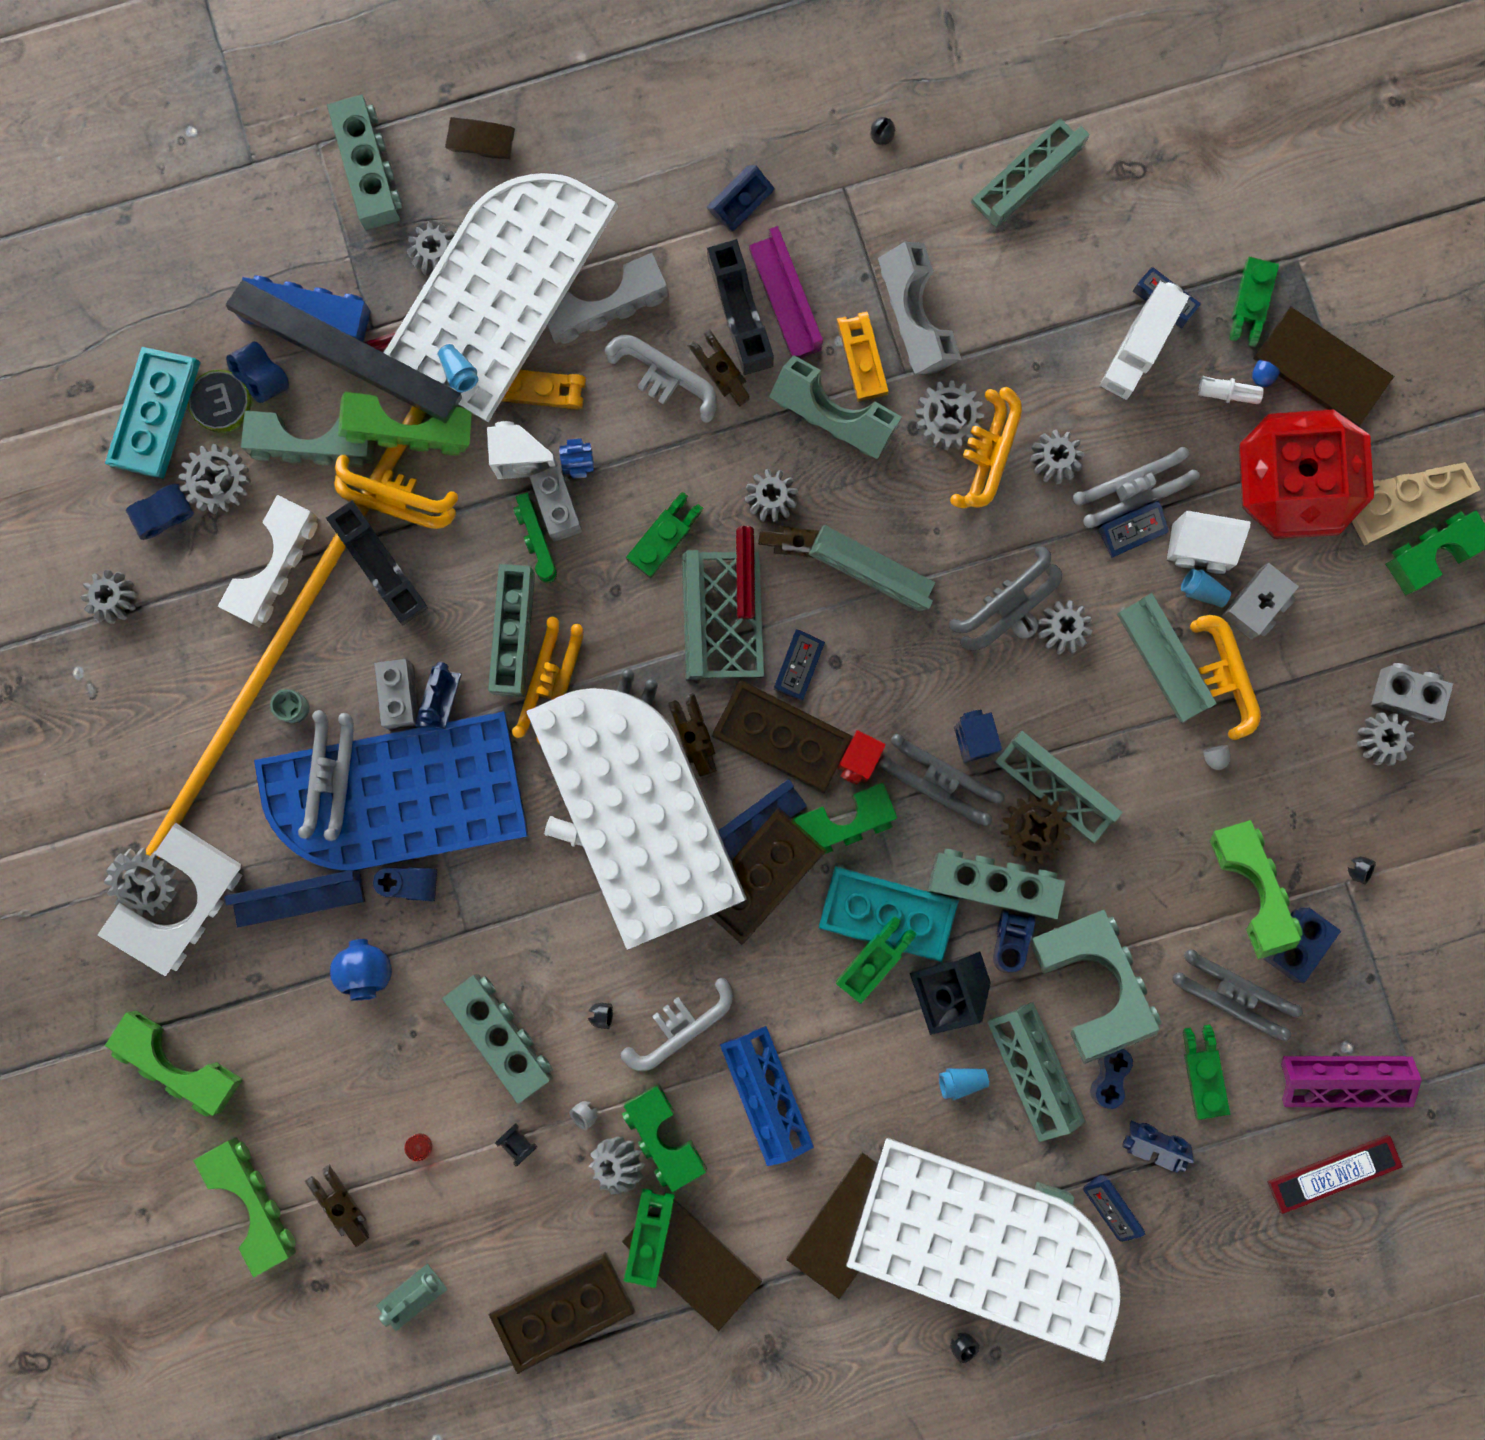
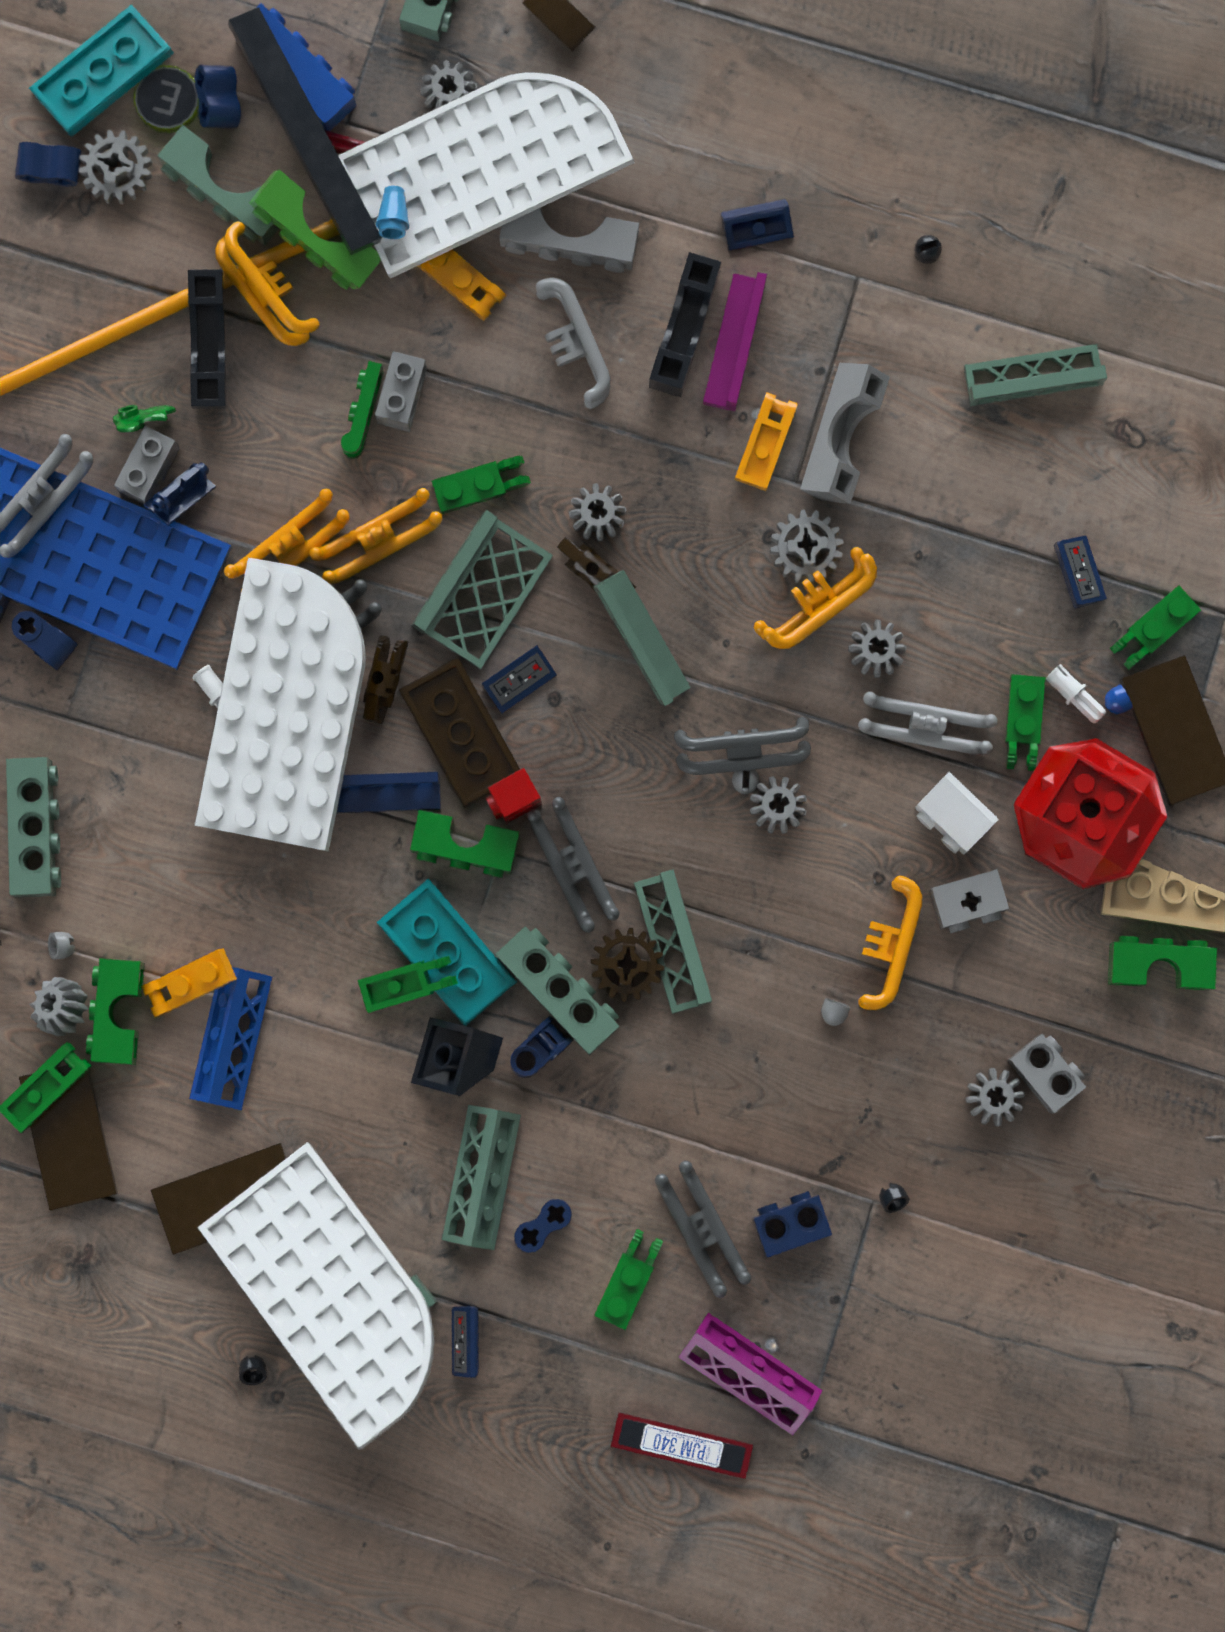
camera: 30 degrees right, 0 degrees up
(253, 597) = (150, 257): white arch -> none
(283, 704) = (41, 409): sand green wheel -> none
(361, 664) = (133, 419): none -> green plate
(511, 630) = (285, 478): sand green brick -> none
(516, 452) = (394, 322): white slope -> none
(576, 458) = (447, 363): blue gear -> none
(602, 1015) = (135, 870): black hinge -> none
(615, 629) = (377, 538): none -> light orange piece
(680, 1028) = (196, 926): light grey piece -> none
(707, 1075) = (190, 982): none -> light orange plate
(729, 382) = (631, 384): dark brown hinge -> none
(745, 572) = (527, 565): dark red axle -> none
(768, 872) = (363, 842): dark brown tile -> none
(802, 392) = (689, 437): sand green arch -> none
(961, 1082) = (409, 1141): dark azure cone -> none
(977, 736) = (629, 846): dark blue brick -> none
(1096, 940) = (587, 1182): sand green arch -> none
(1134, 529) = (902, 760): slope -> none
(1144, 339) = (1017, 595): white arch -> none
(1166, 658) = (848, 893): sand green fence -> none
(1172, 1150) = (536, 1301): dark blue hinge -> none
(1203, 436) = (1024, 718): none -> green hinge
(1204, 588) = (928, 855): dark azure cone -> none
(1241, 851) = (771, 1185): bright green arch -> none

